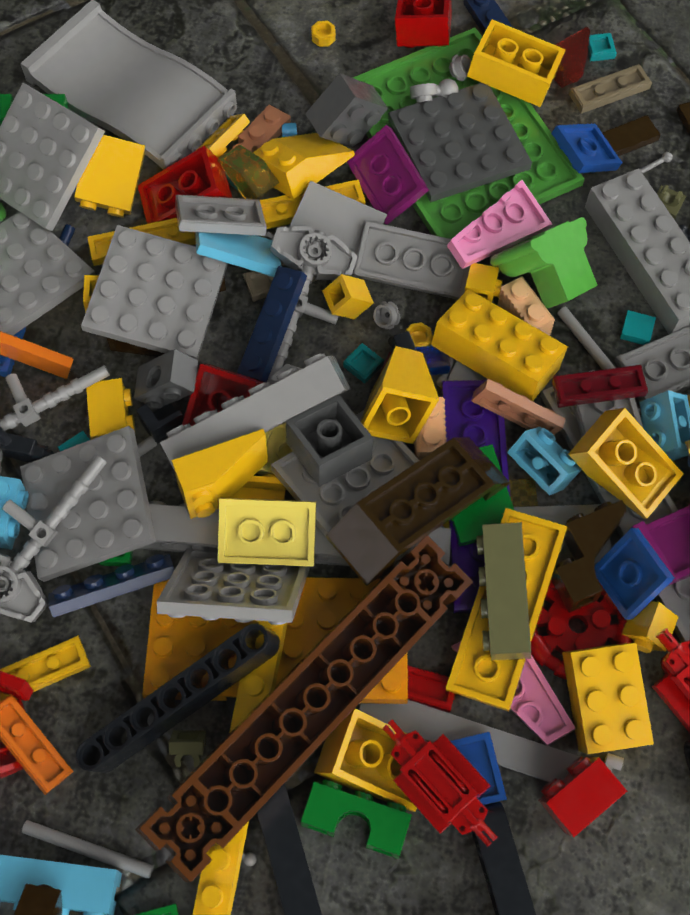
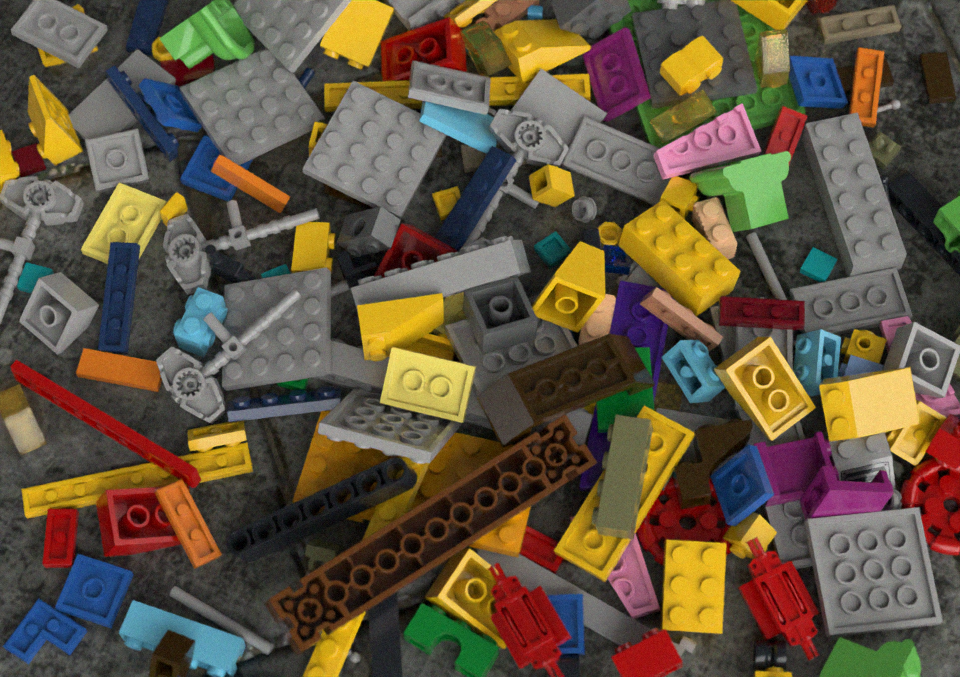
camera: 15 degrees right, 0 degrees up
(41, 635) = (207, 437): none -> yellow plate
(240, 334) = (445, 201): none -> yellow tile
(463, 150) = (691, 66): none -> yellow brick
(467, 201) = (683, 116): none -> clear yellow slope
(542, 129) = (773, 58): none -> clear yellow slope
(570, 199) = (785, 132): none -> red plate
(636, 141) = (866, 85): none -> orange tile

